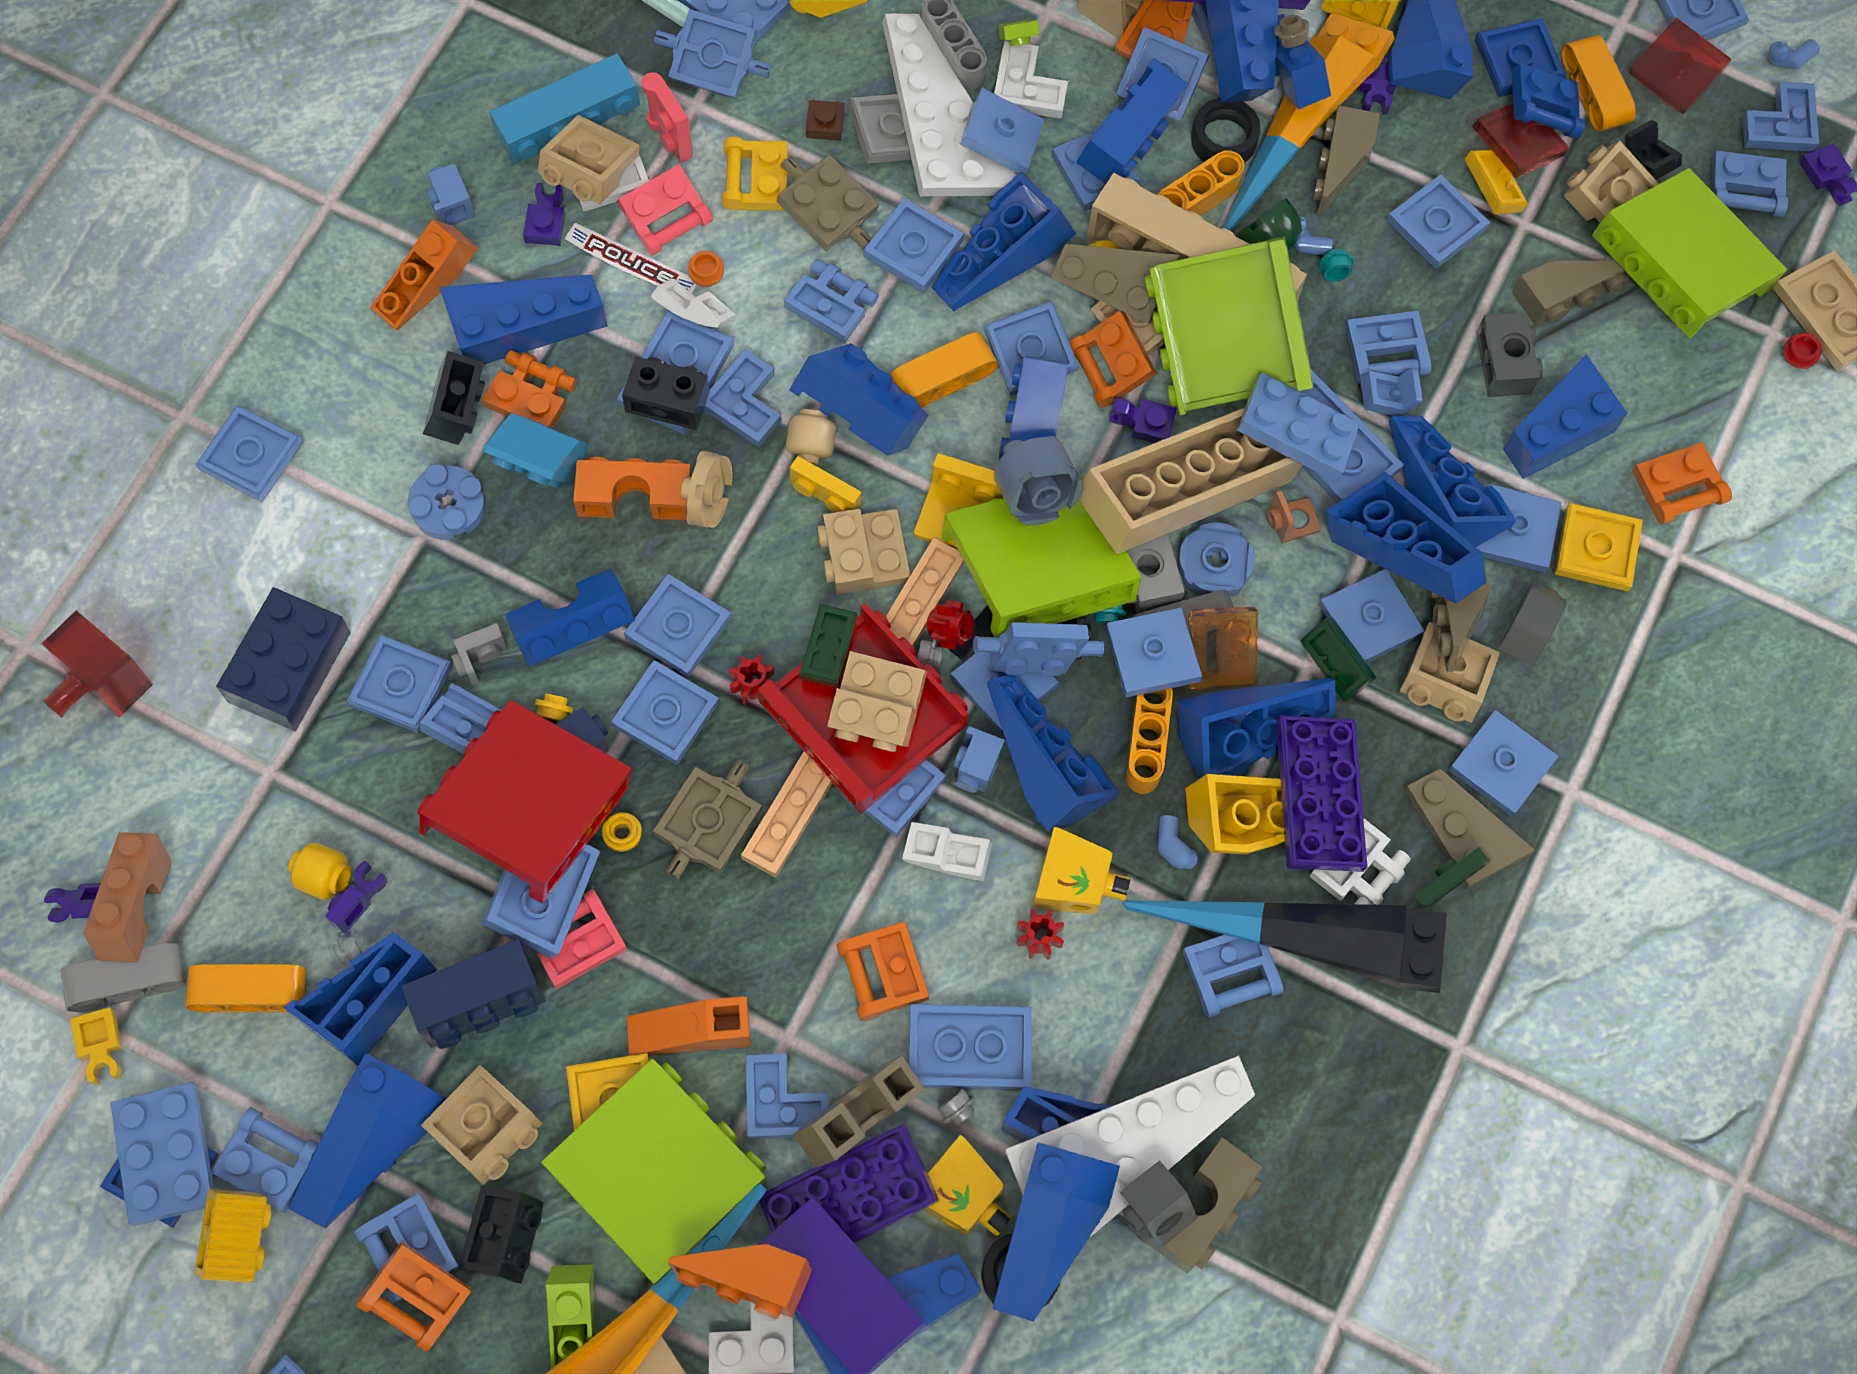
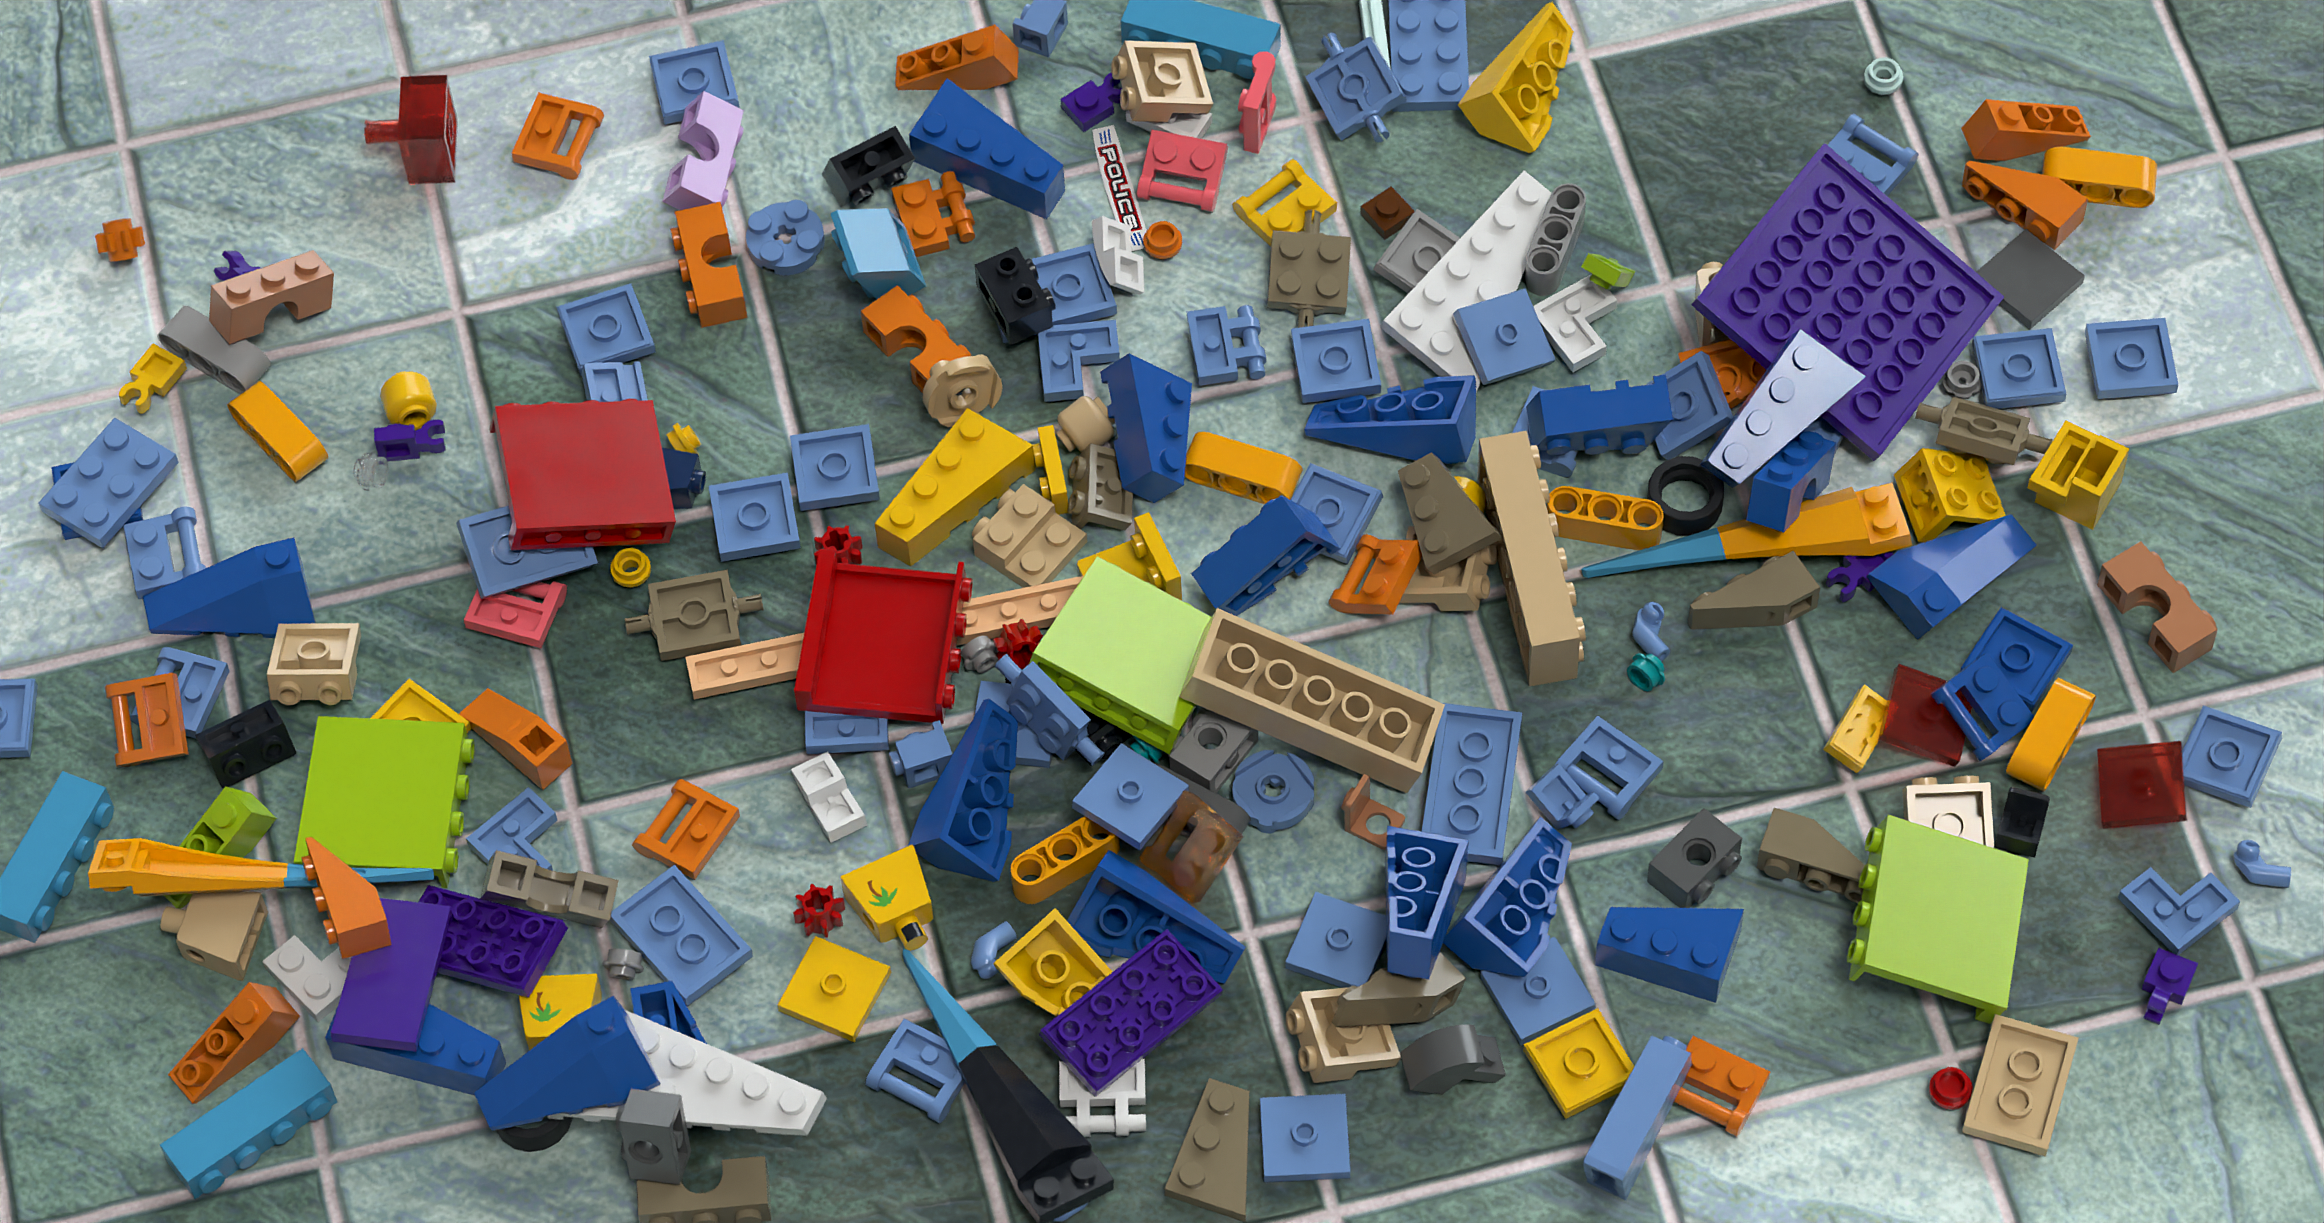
camera: 55 degrees right, 10 degrees down
(182, 586) = (546, 129): none -> orange plate
(232, 1235) = (86, 571): yellow brick -> none
(283, 659) = (550, 240): dark blue brick -> none
(311, 473) = (713, 131): none -> lavender arch
(364, 999) = (338, 507): blue wedge -> none
(446, 586) = (715, 291): none -> orange arch
(474, 995) = (404, 570): dark blue brick -> none
(477, 646) = (682, 351): light grey bracket -> none
(549, 632) = (790, 400): blue arch -> none
(773, 550) = (951, 485): none -> yellow wedge
(828, 645) = (906, 569): dark green plate -> none
(870, 471) = (1098, 490): none -> dark tan bracket
(877, 701) = (889, 637): tan plate -> none
(1037, 479) = (1182, 588): sand blue brick -> none
(1109, 976) = (834, 989): none -> yellow plate
(1150, 421) = (1352, 645): dark purple plate -> none
(1228, 322) = (1474, 621): lime panel -> none
(1275, 223) = (1613, 597): dark green cylinder -> none
(1292, 31) = (1798, 449): dark tan plate -> none
(1298, 427) = (1440, 744): medium blue plate -> none
(1338, 658) = (1271, 942): dark green plate -> none
(1438, 221) = (1772, 715): medium blue plate -> none
(1452, 875) = (1152, 1162): dark green plate -> none
(1686, 545) = (1637, 1116): none -> medium blue slope
(1750, 175) = (2090, 919): medium blue plate -> none

